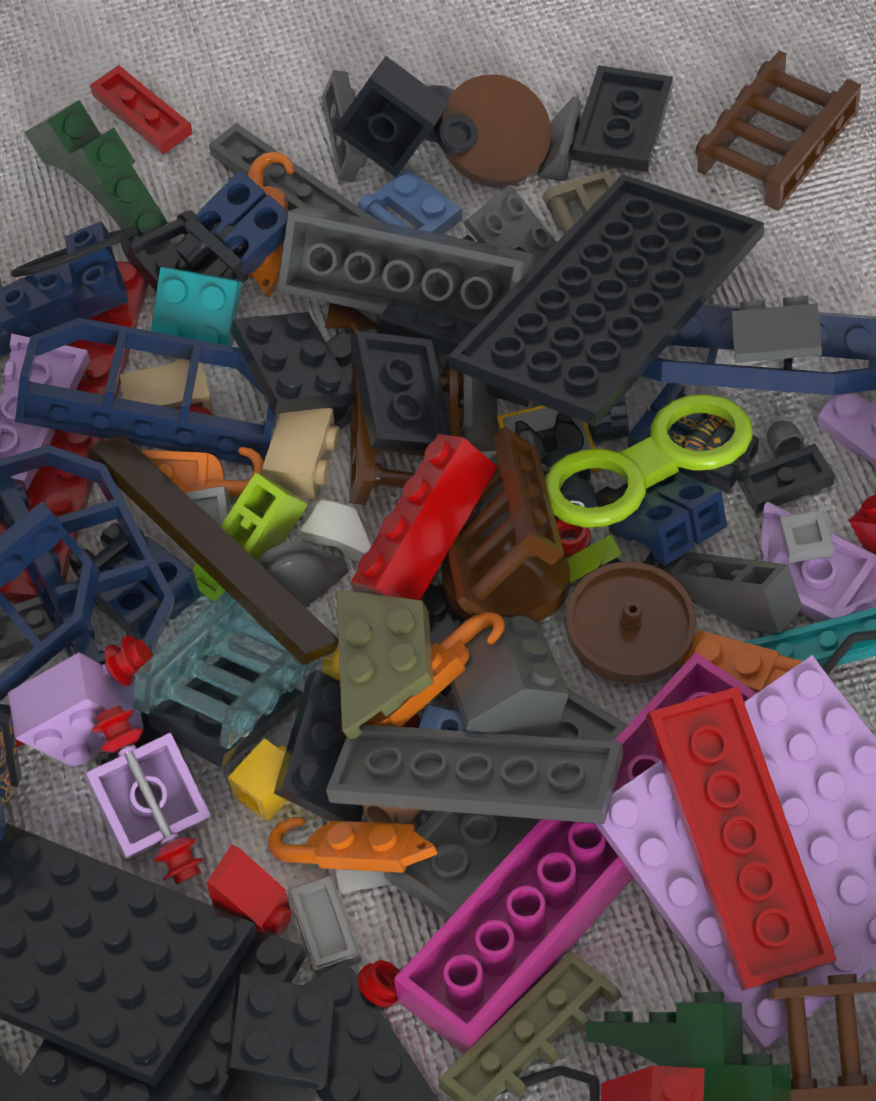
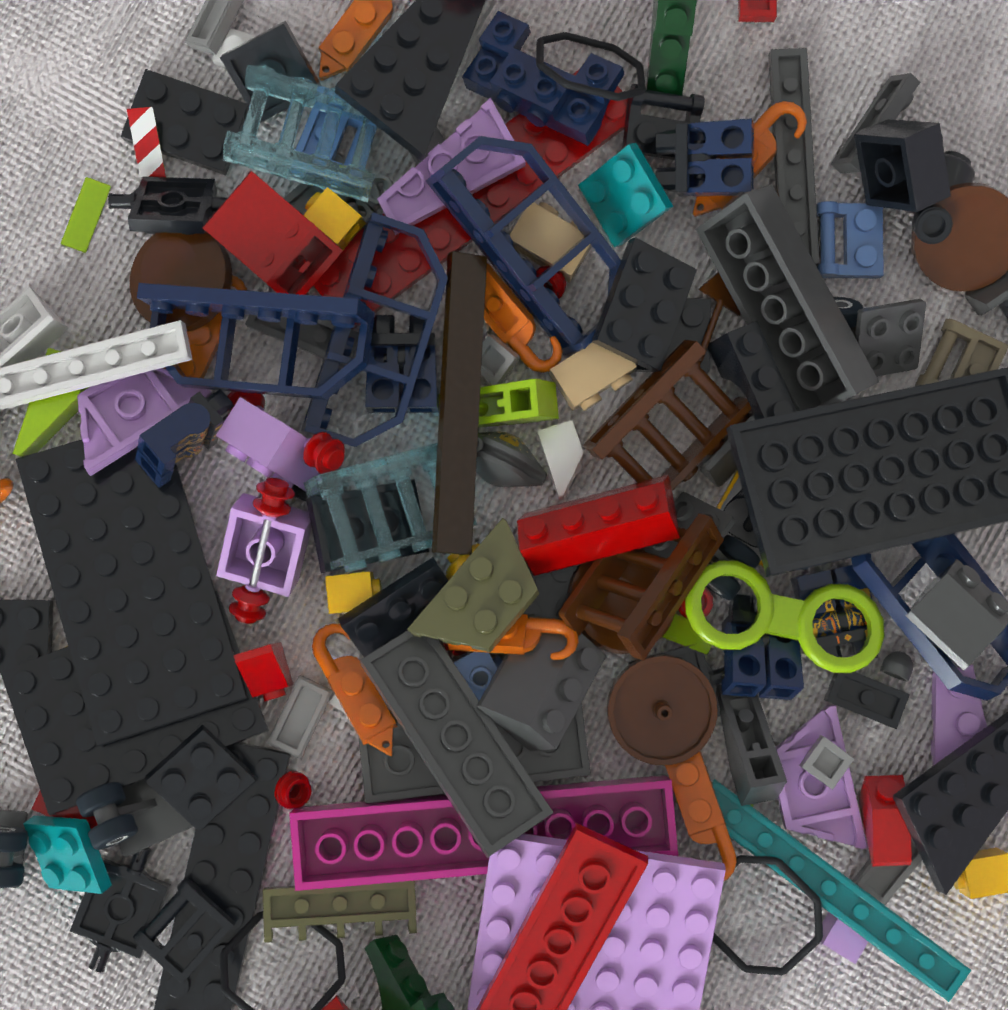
camera: 35 degrees right, 30 degrees up
(399, 391) = (683, 409): black plate -> none

